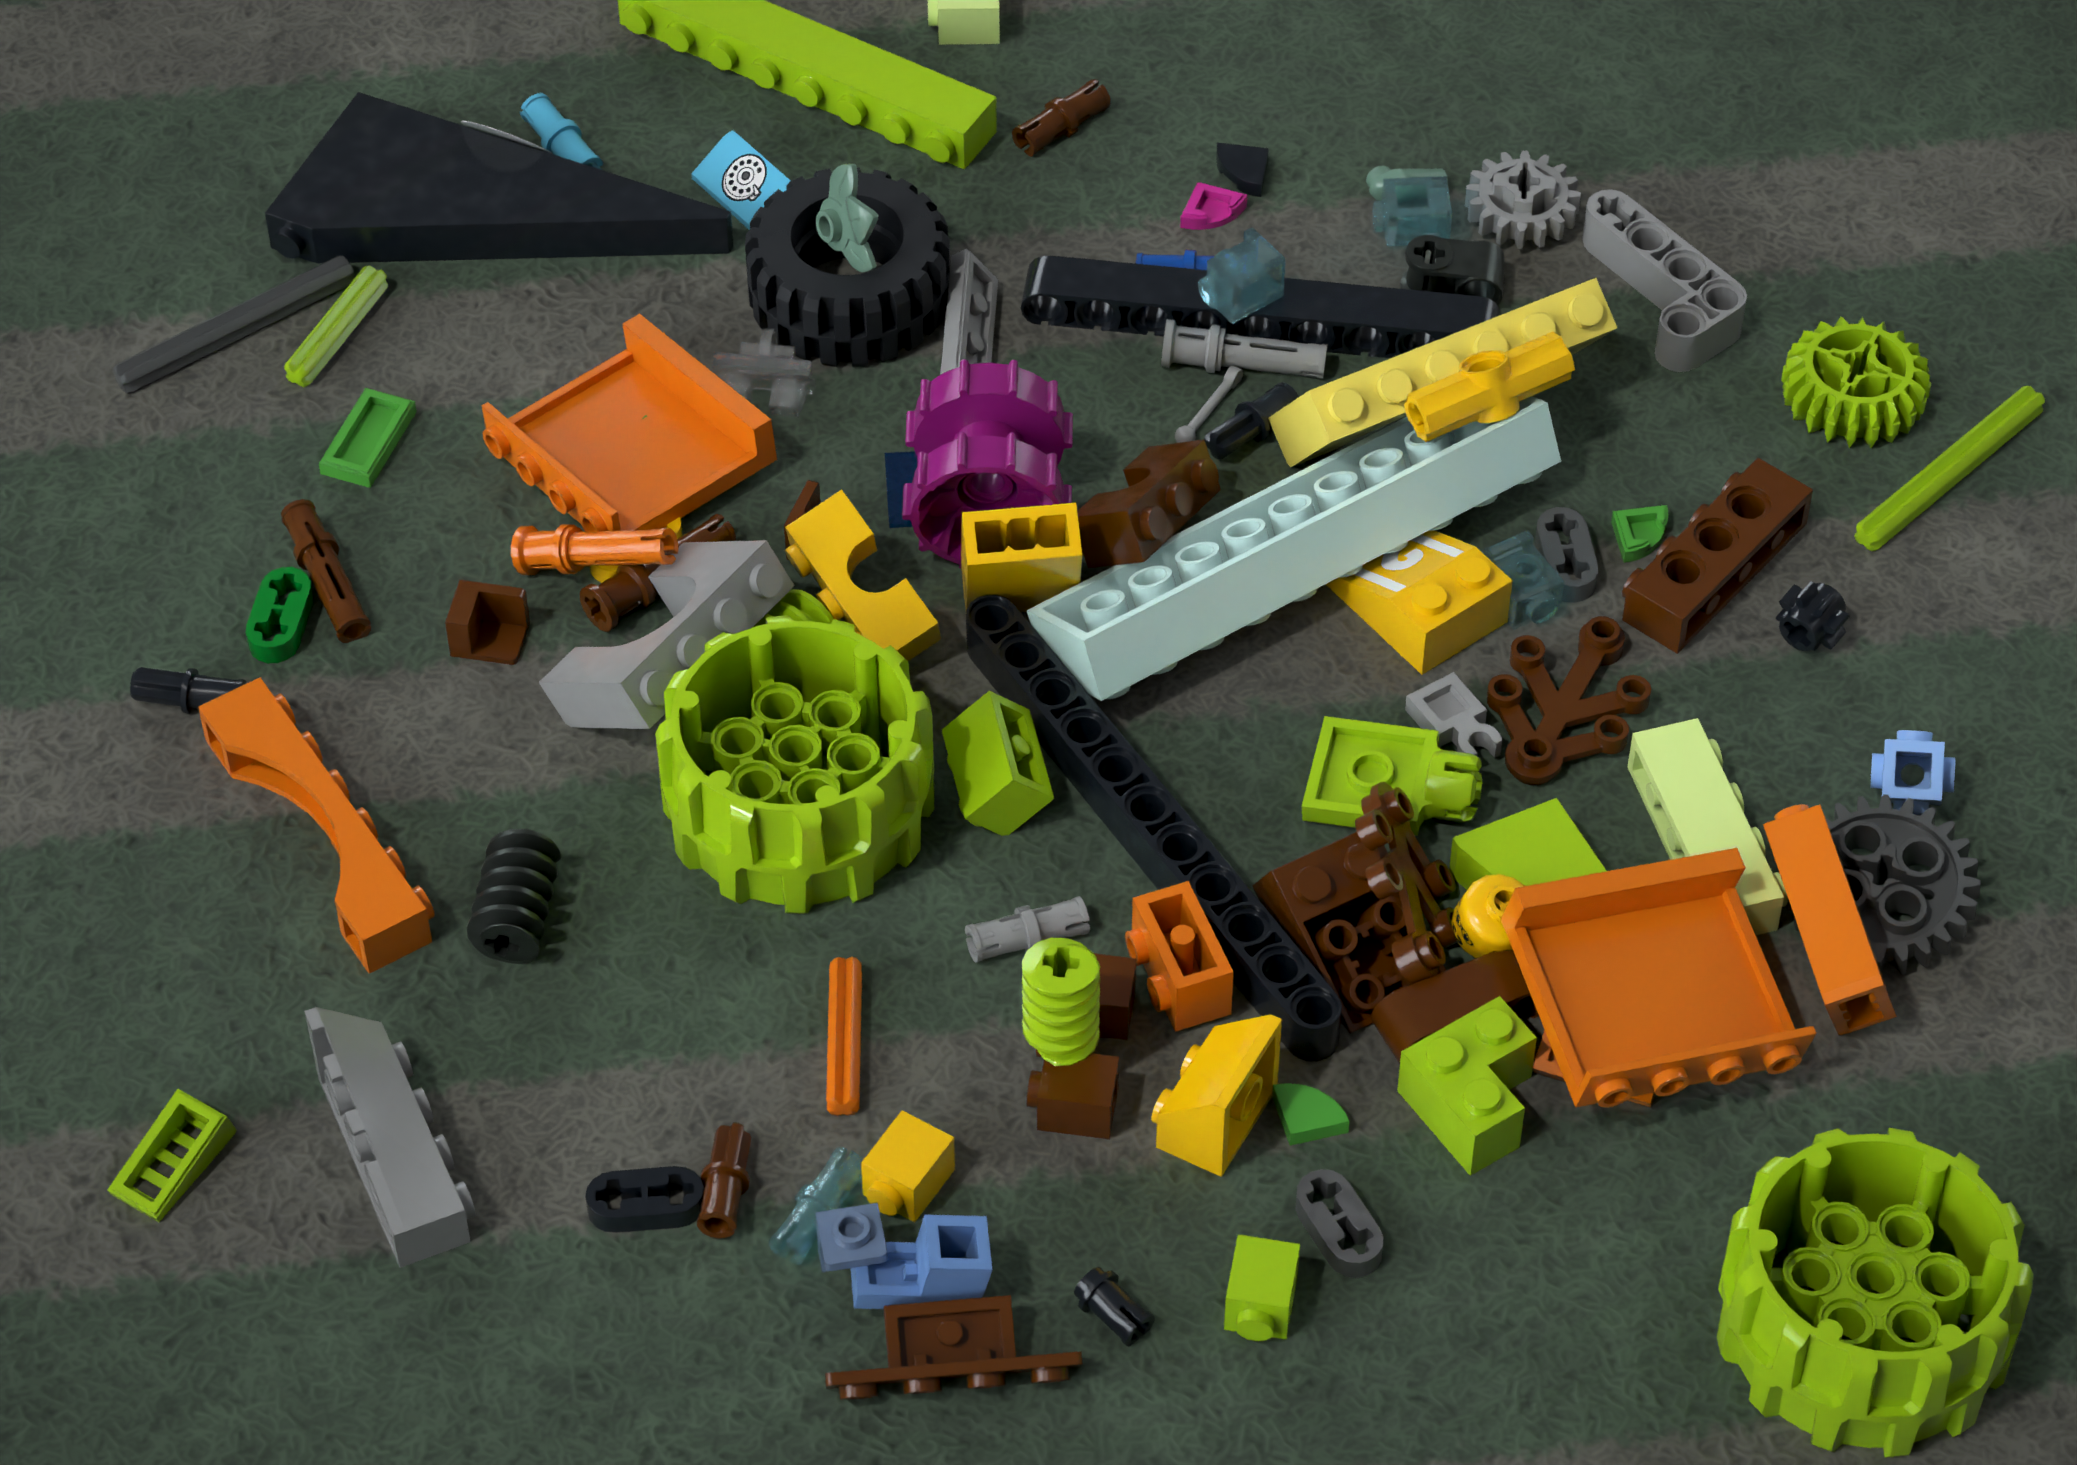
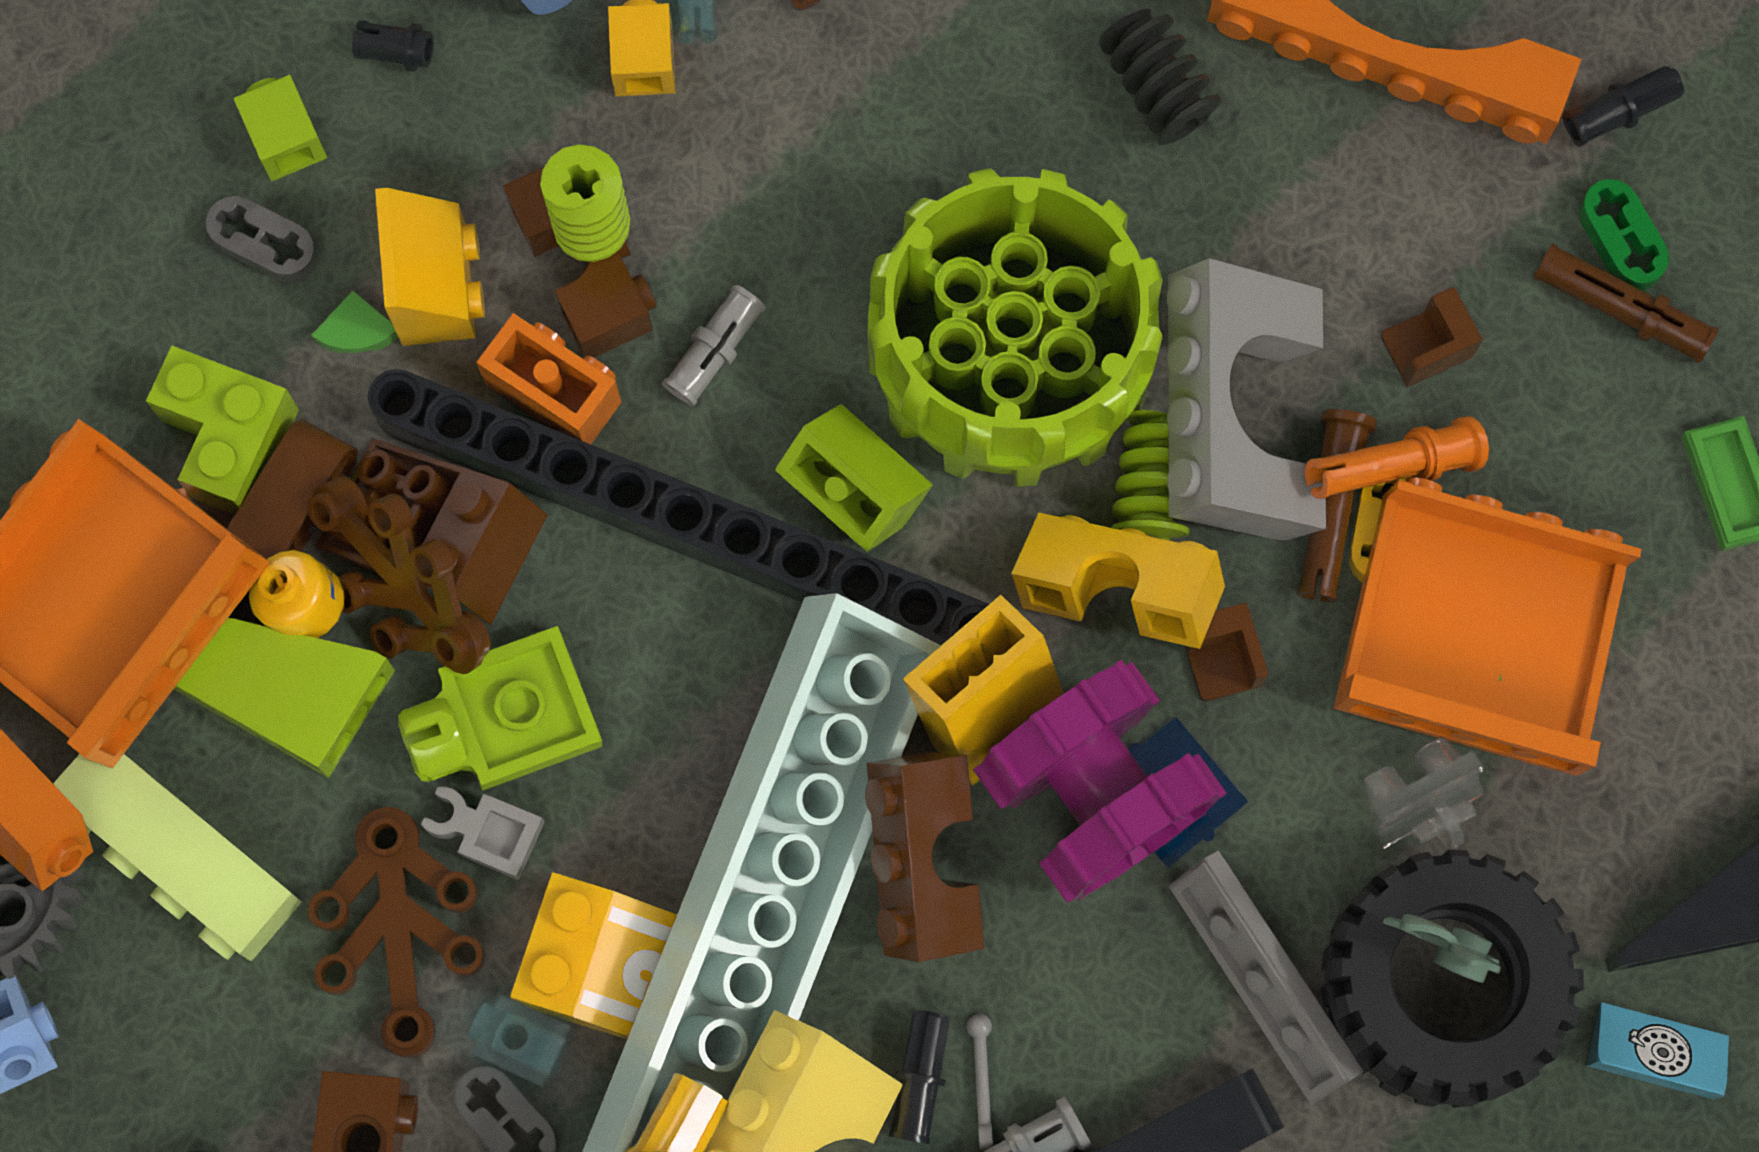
camera: 145 degrees right, 25 degrees up
(844, 1036) = (793, 147): orange axle -> none

